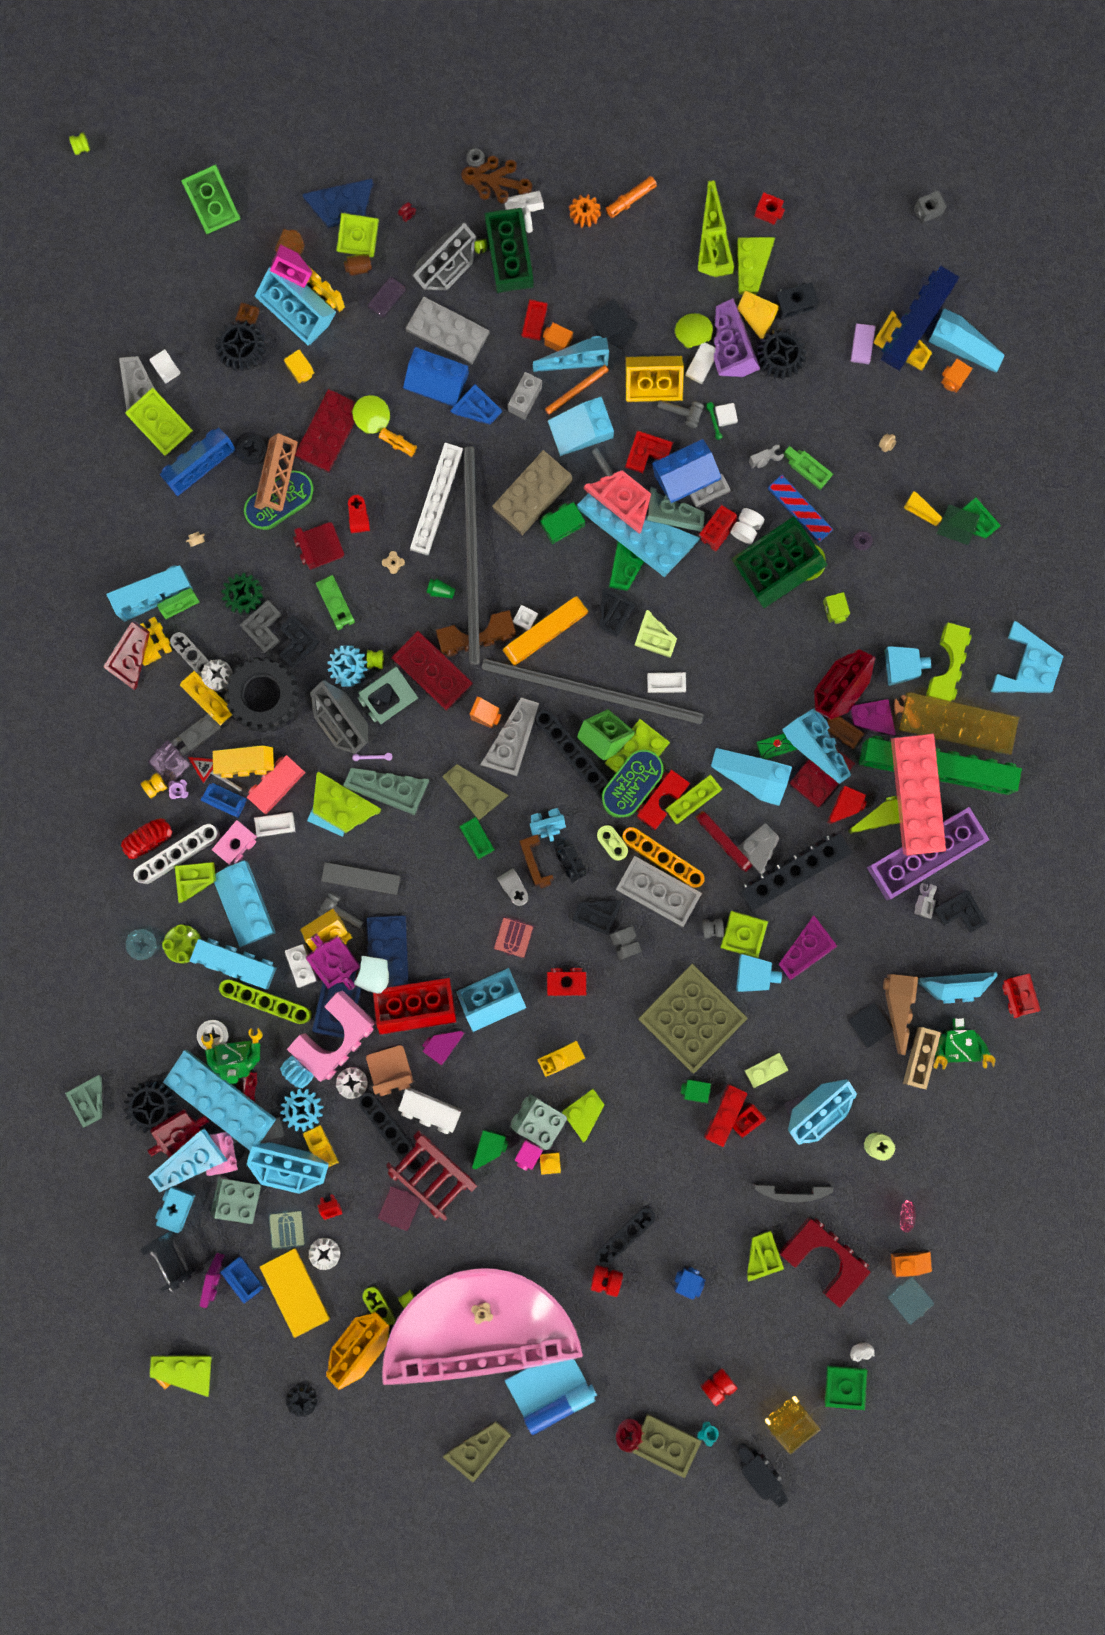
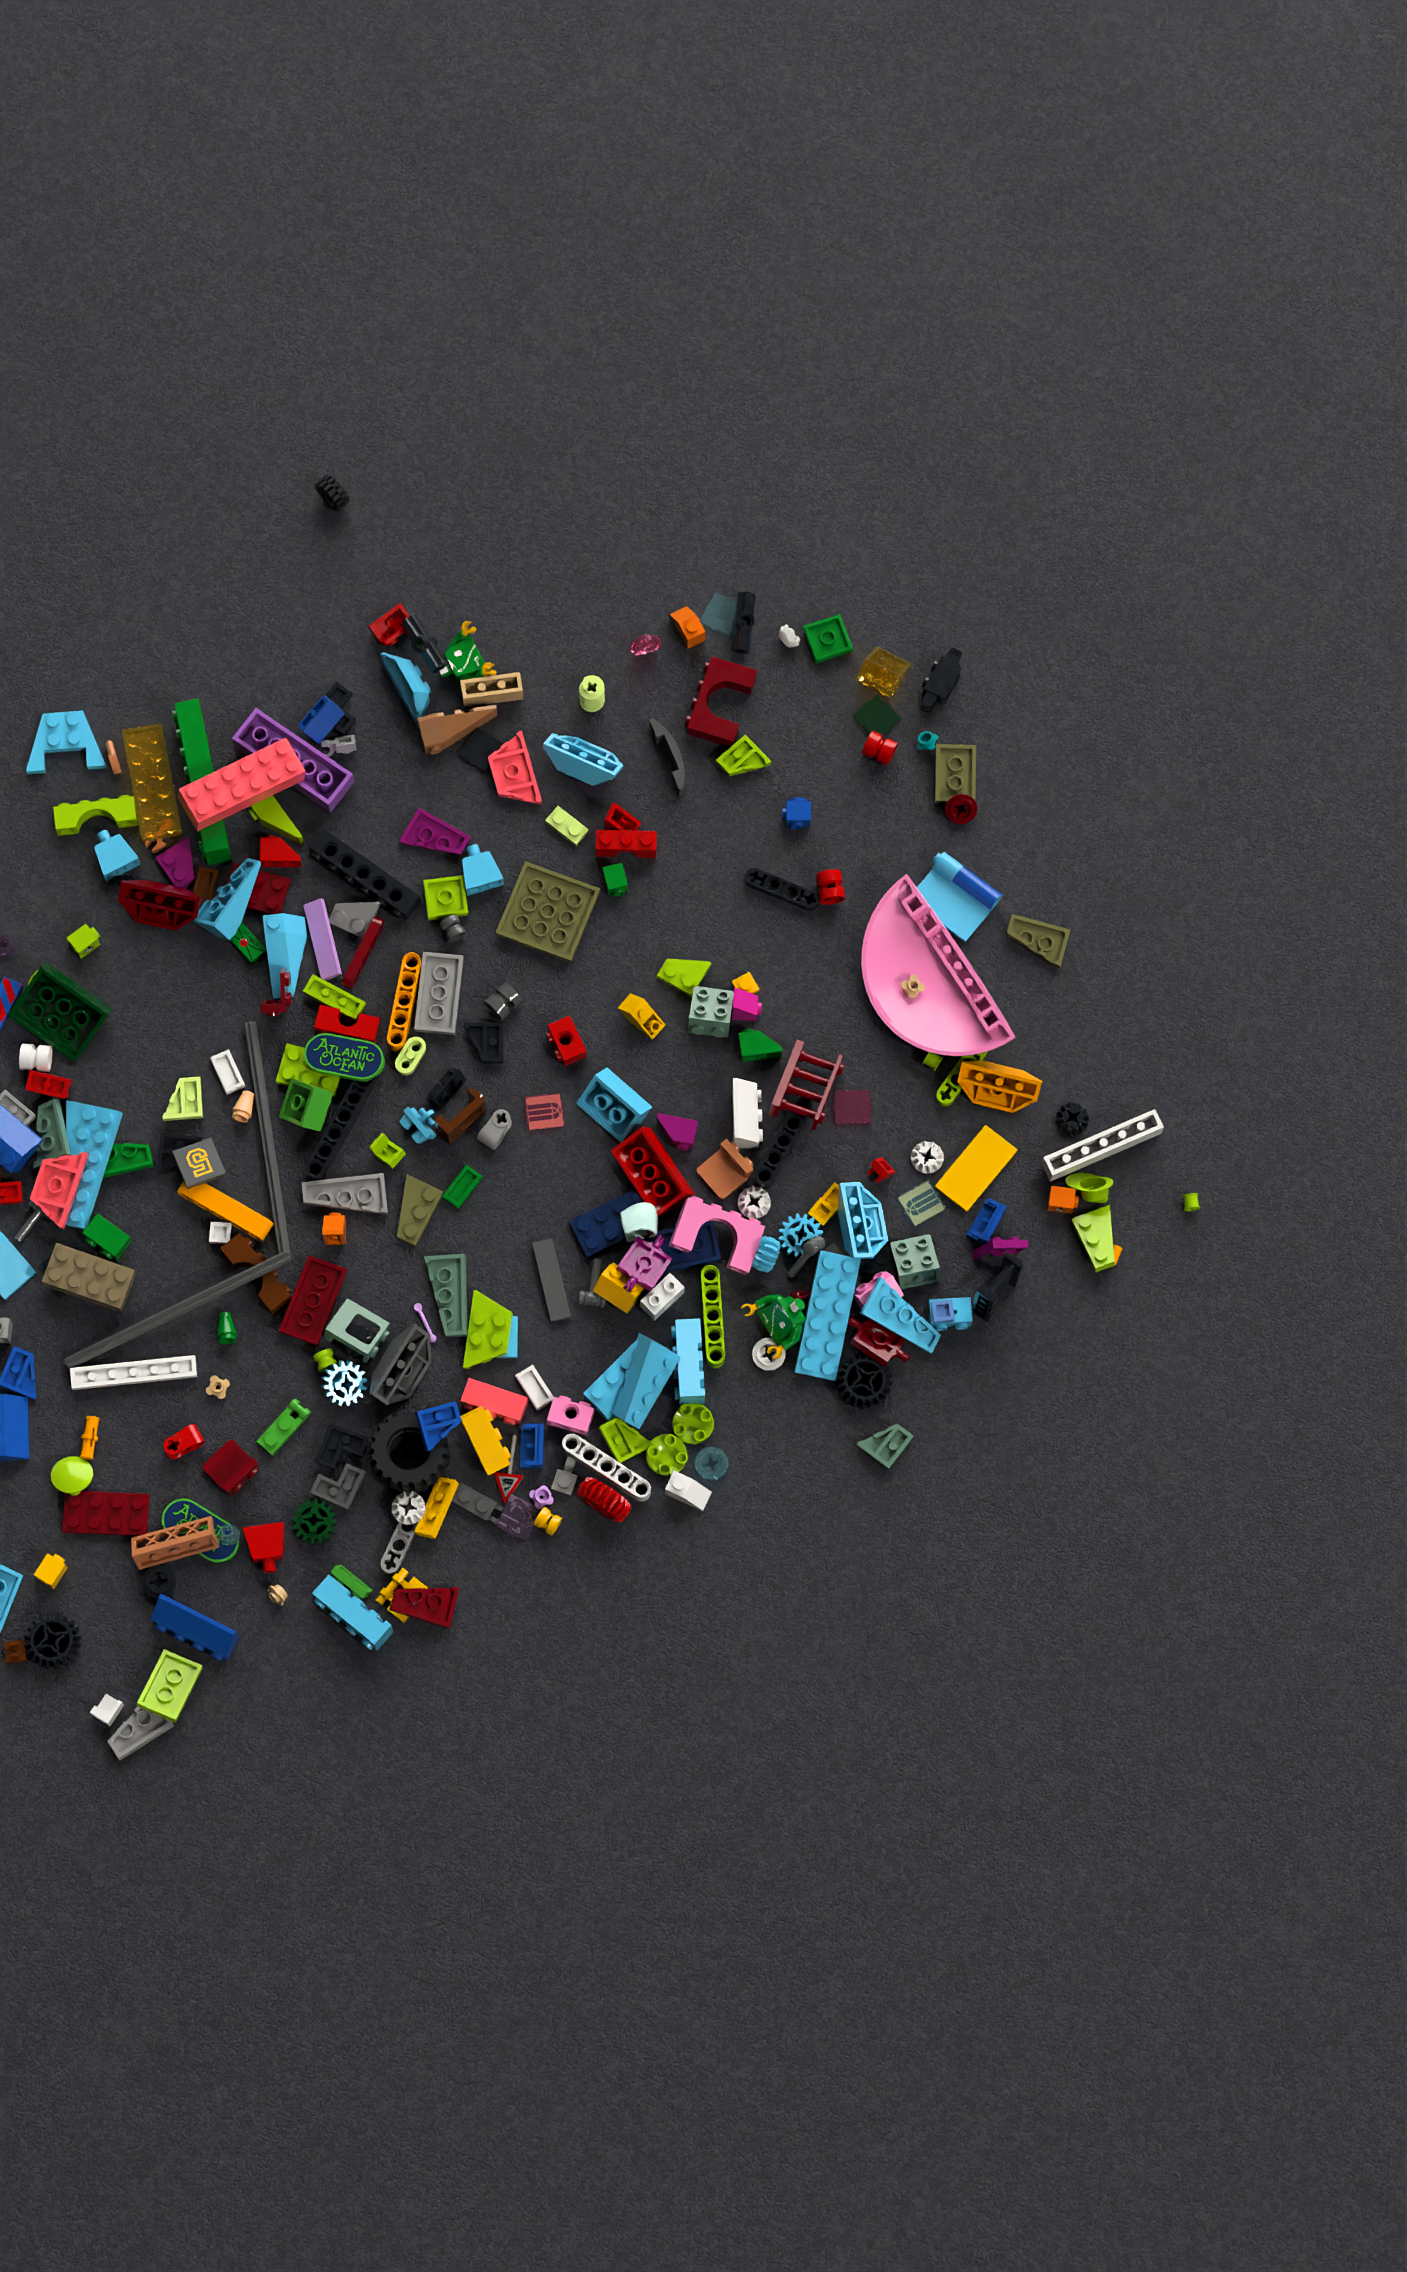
camera: 115 degrees left, 10 degrees down
(126, 913) = (687, 1491): none -> white slope
(165, 909) = (666, 1454): none -> lime dish
(173, 1202) = (942, 1311): none -> medium blue plate
(177, 1471) = (1190, 1202): none -> lime axle
(184, 815) = (565, 1480): none -> light grey plate
(229, 916) = (644, 1380): none -> medium azure wedge
(230, 1356) = (1062, 1199): none -> orange brick
(231, 1388) = (1092, 1187): none -> lime piece
(241, 546) = (266, 1544): none -> red torso
(261, 1417) = (1102, 1145): none -> white brick
(264, 521) = (229, 1539): none -> clear light blue cone
(268, 724) = (437, 1423): none -> blue wing
(278, 1110) = (809, 1248): none -> dark grey piece
(534, 787) = (387, 1151): none -> lime bracket
(591, 622) = (199, 1163): none -> dark grey tile
(627, 682) = (243, 1108): none -> light nougat cone
(705, 745) = (273, 1007): none -> dark red bracket
(751, 811) = (322, 939): none -> lavender tile
(752, 1398) = (877, 716): none -> clear green piece
(837, 1045) = (514, 772): none -> coral wing
(903, 1322) = (744, 611): none -> black piece
(956, 894) = (321, 719): none -> blue hinge
(988, 698) = (113, 757): none -> nougat bar
(989, 1015) = (424, 643): none -> black piece

